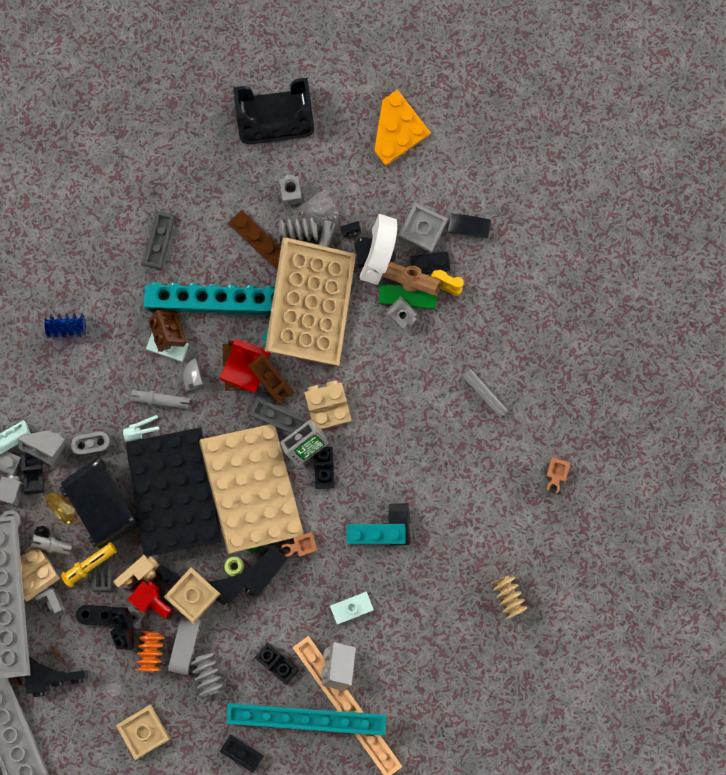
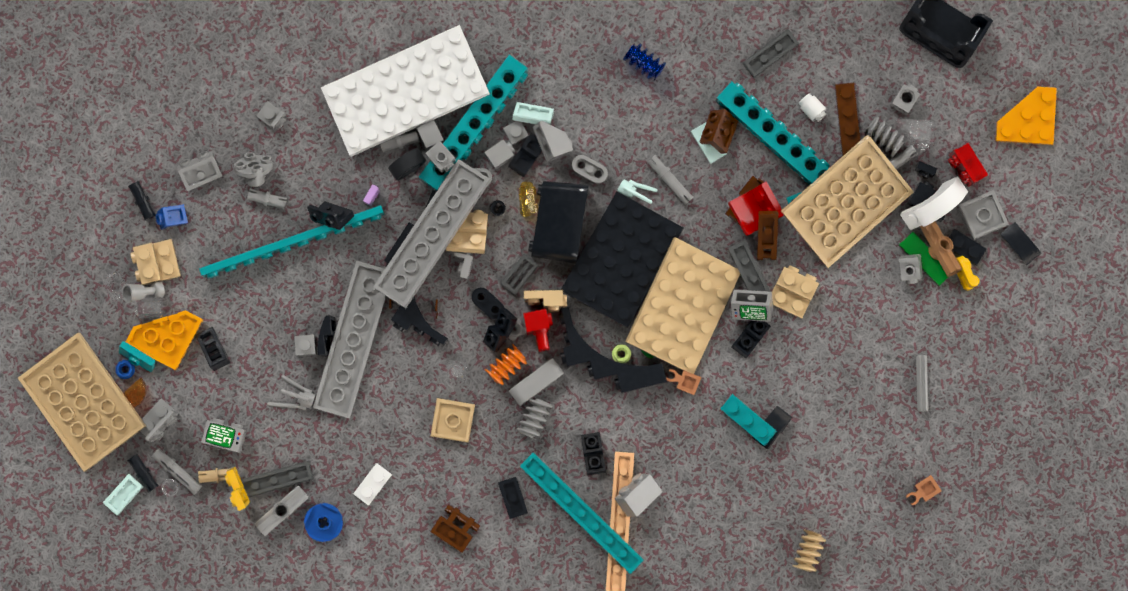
camera: 35 degrees right, 5 degrees up
(50, 544) = (497, 222): light grey pin -> none
(81, 571) = (538, 263): yellow pin -> none
(192, 376) = (709, 181): light grey brick -> none
(192, 595) = (573, 350): tan plate -> none
(225, 254) = (812, 107): none -> white brick
(351, 608) = (683, 459): light aqua plate -> none
(379, 200) = (967, 164): none -> red bracket

